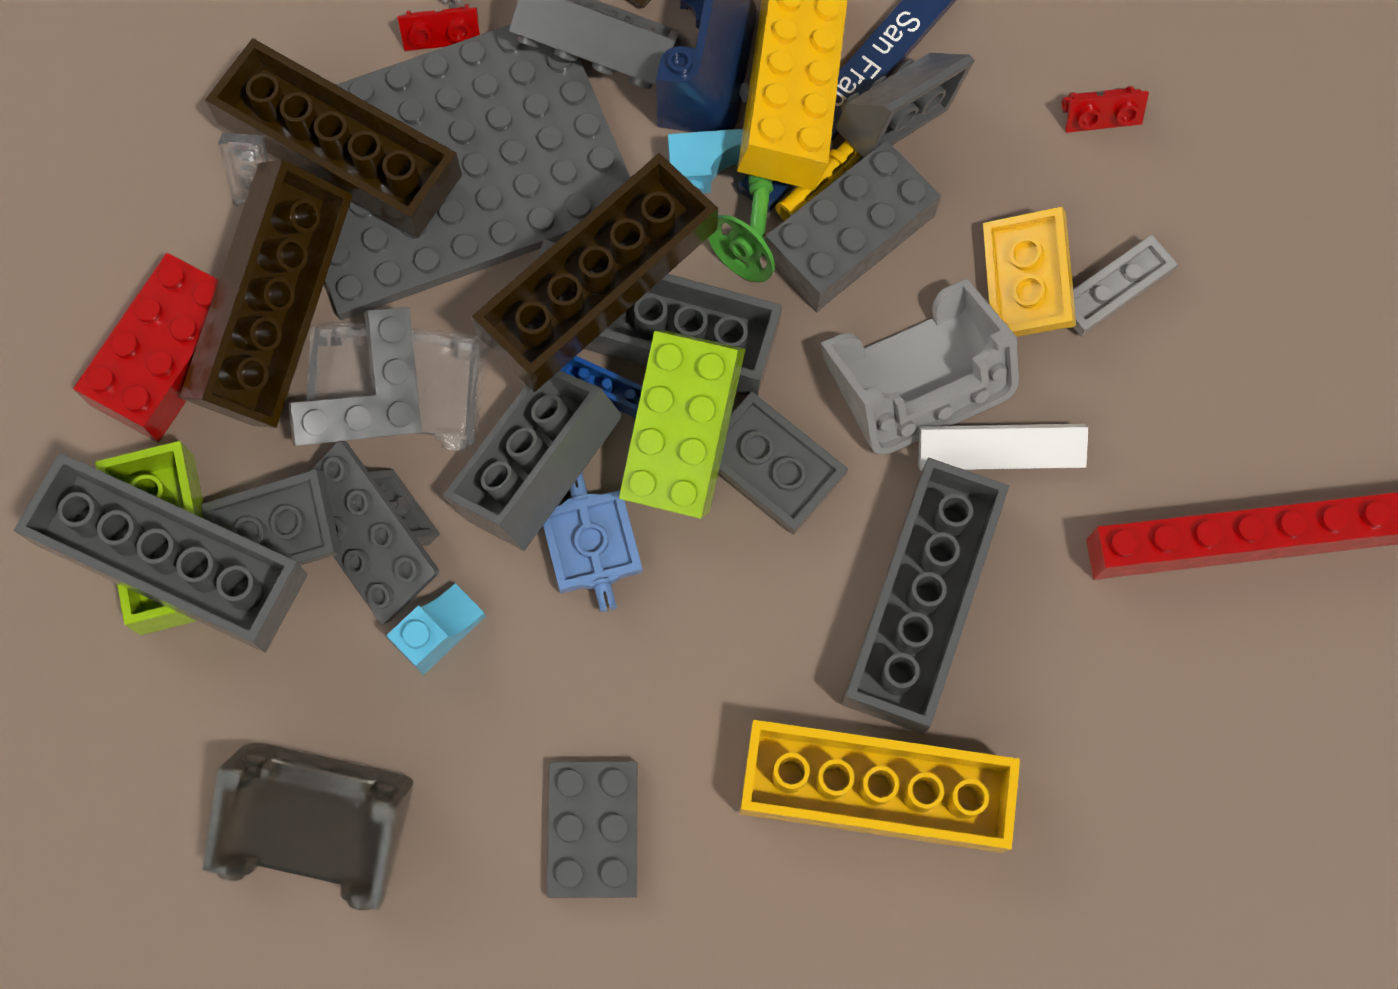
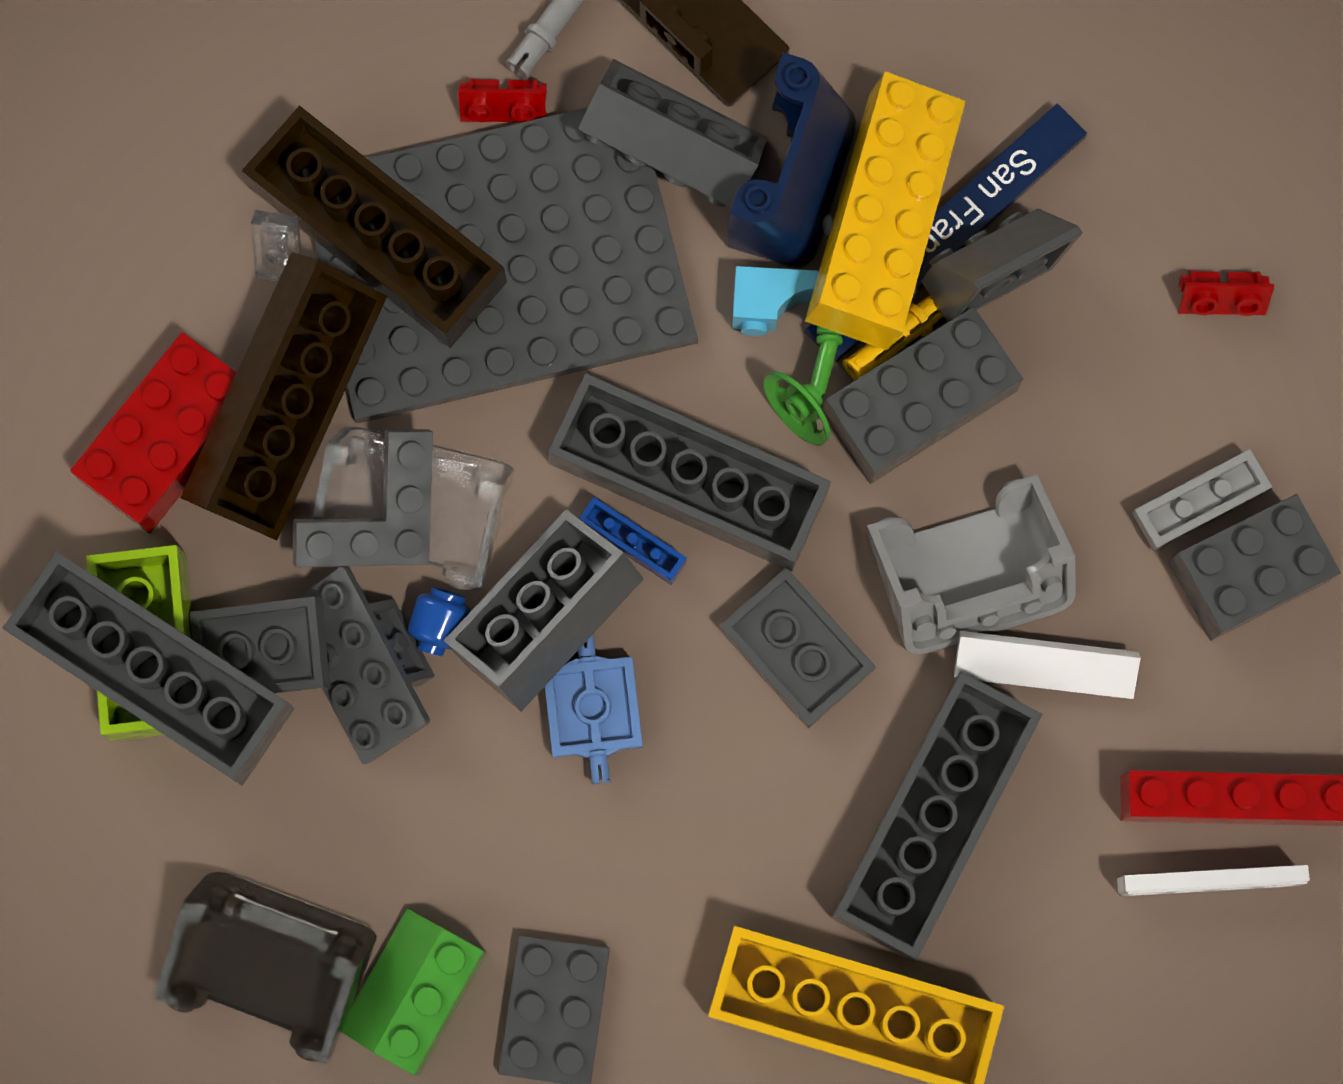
camera: 10 degrees right, 5 degrees up
(432, 478) = (435, 618): none -> blue head
(436, 628) = (419, 777): medium azure arch -> none
(455, 830) = (412, 992): none -> bright green slope
(596, 272) = (637, 423): dark brown brick -> none
(681, 423) = (705, 598): lime brick -> none
(1030, 271) = (1107, 476): yellow plate -> none
(1174, 335) = (1254, 567): none -> dark grey brick
(1189, 619) = (1213, 880): none -> white tile

